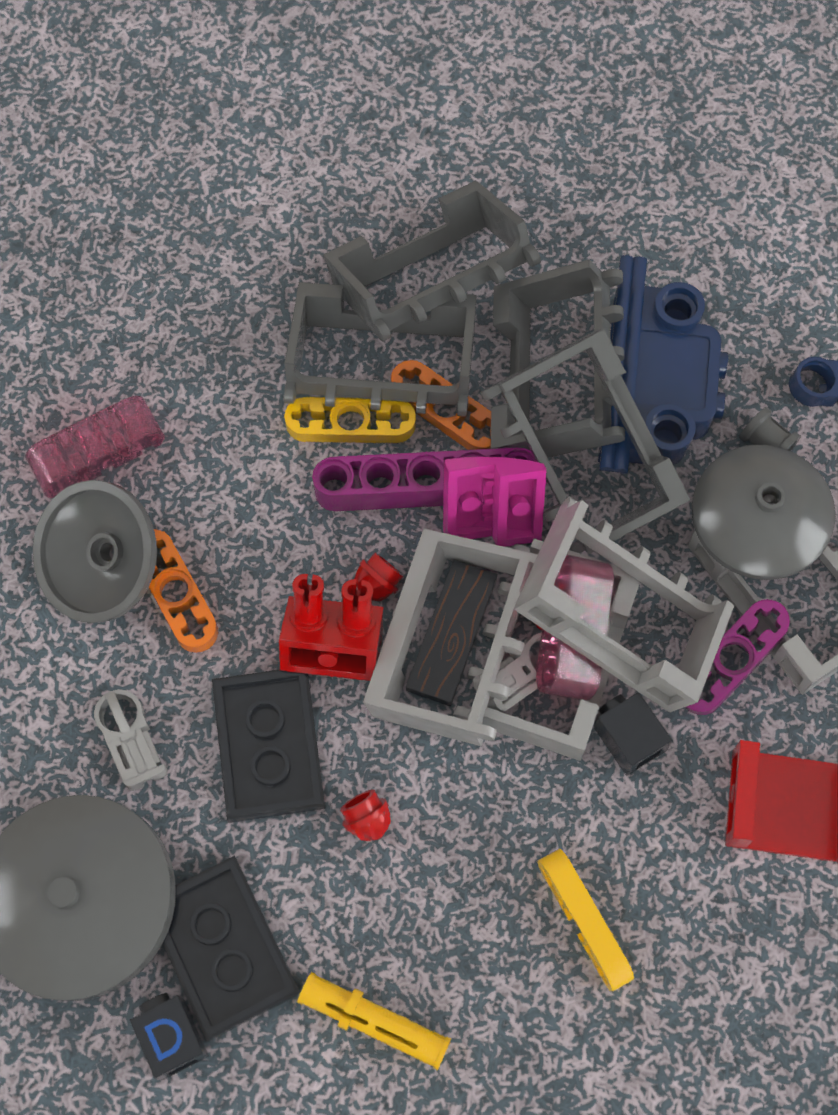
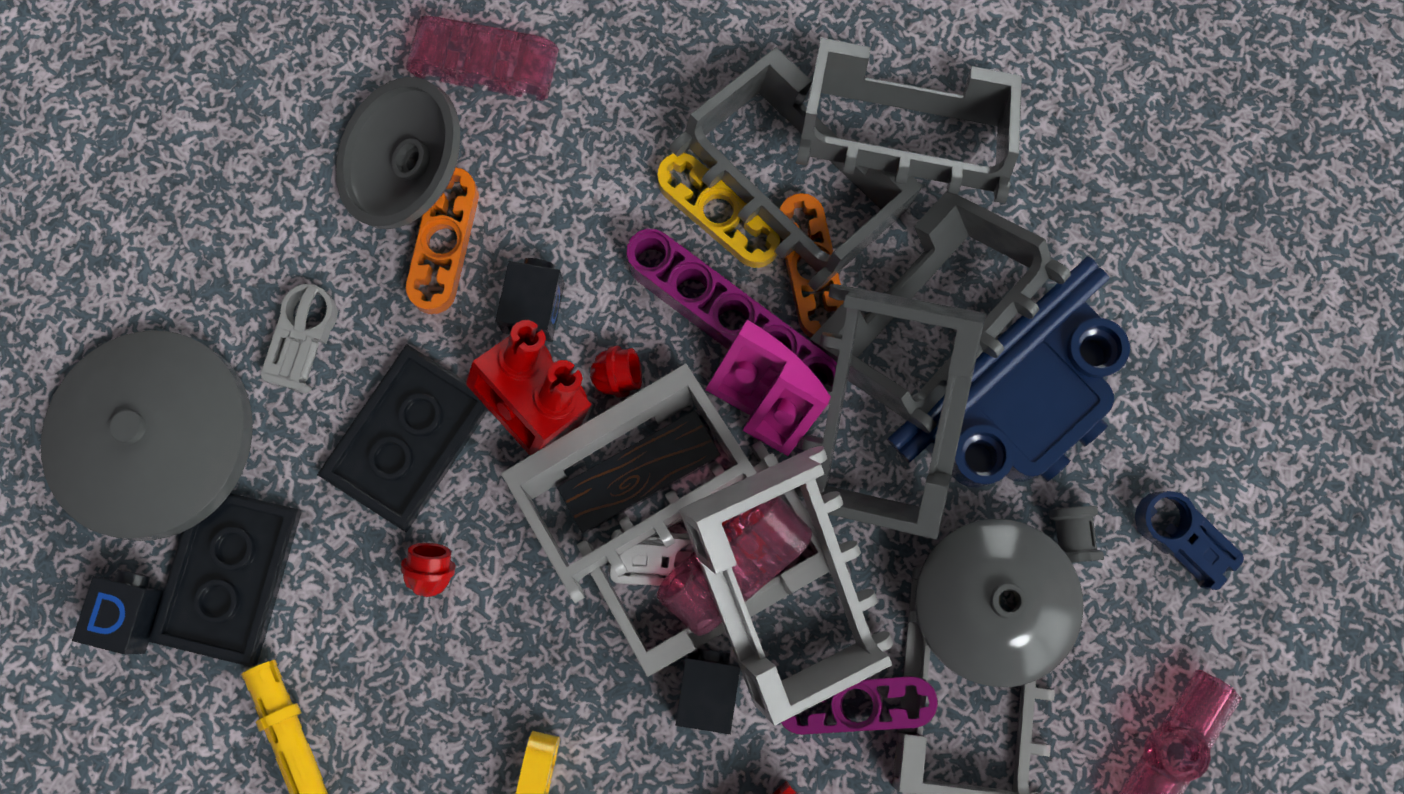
camera: 40 degrees right, 10 degrees up
(271, 573) = (531, 293): none -> black brick

